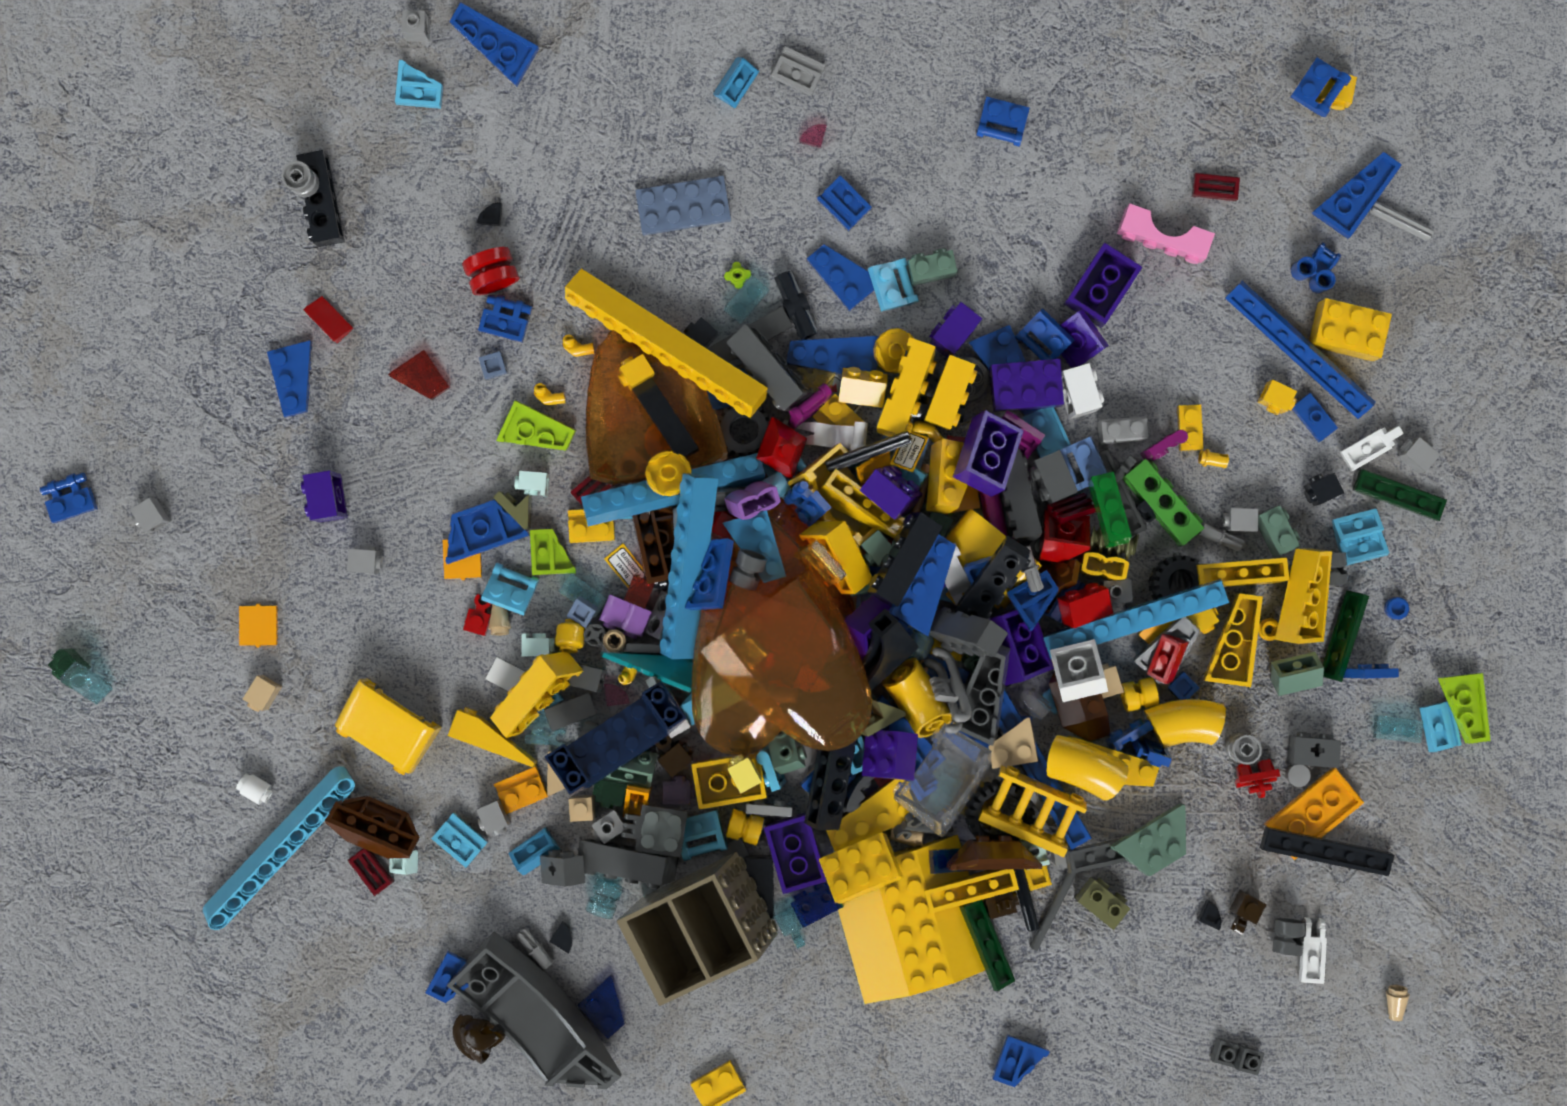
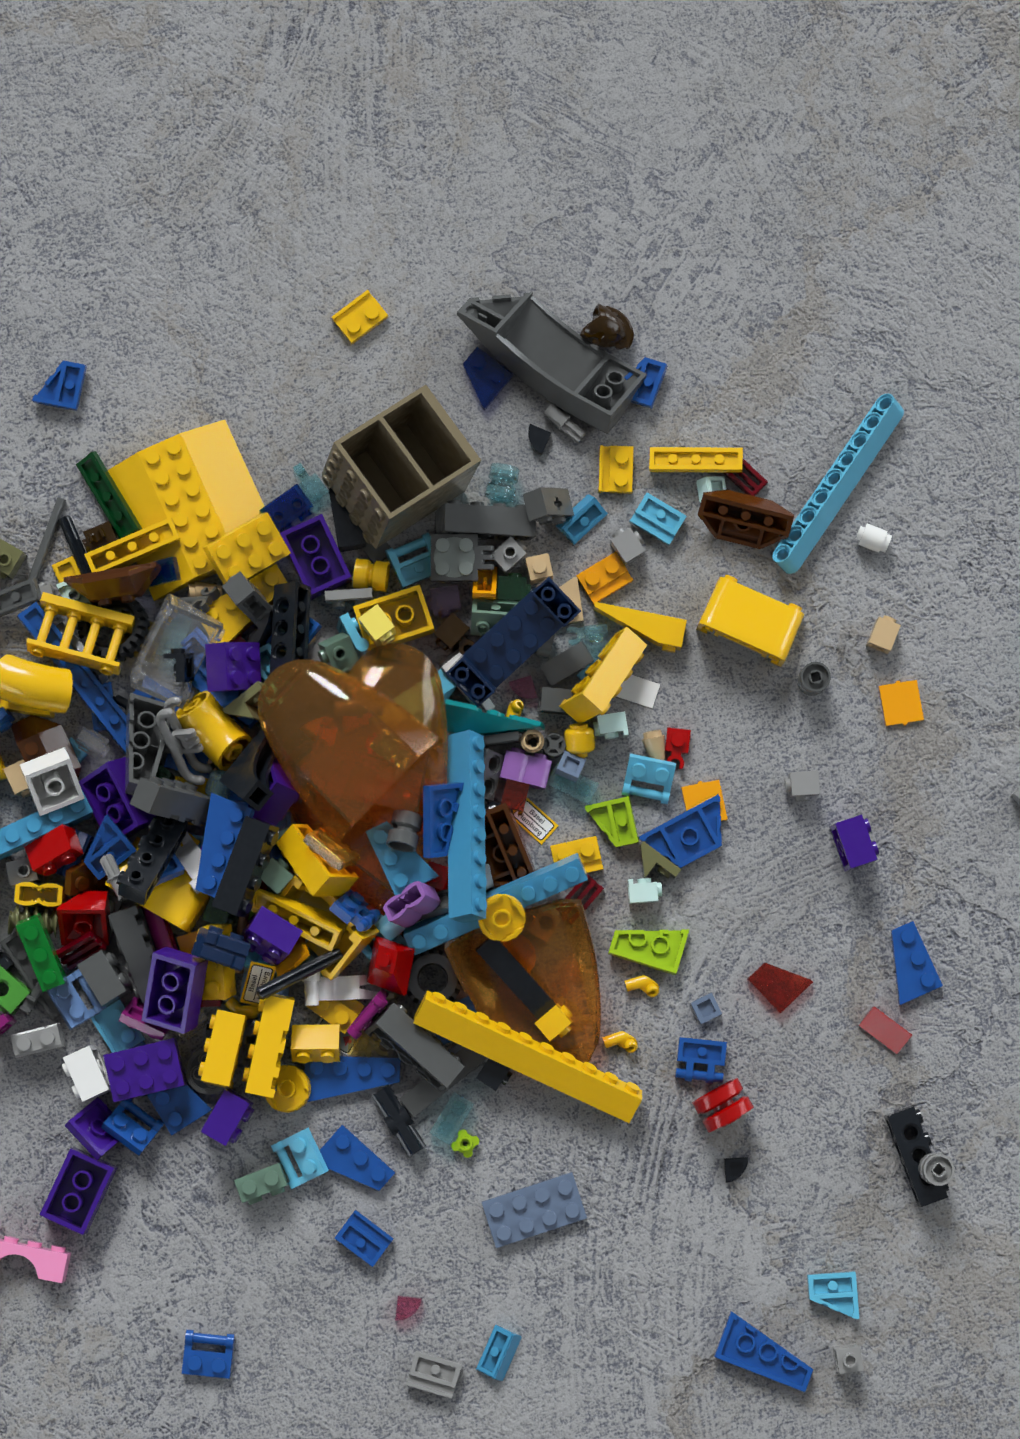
camera: 170 degrees right, 5 degrees down
(335, 660) = (814, 678): none -> dark grey wheel
(412, 892) = (696, 459): none -> yellow plate
(492, 895) = (615, 469): none -> yellow plate
(866, 821) = (247, 597): none -> dark grey brick
(936, 765) = (184, 665): none -> black bracket
(939, 484) = (220, 948): none -> dark blue brick
(1015, 746) = (107, 696): tan wing -> none

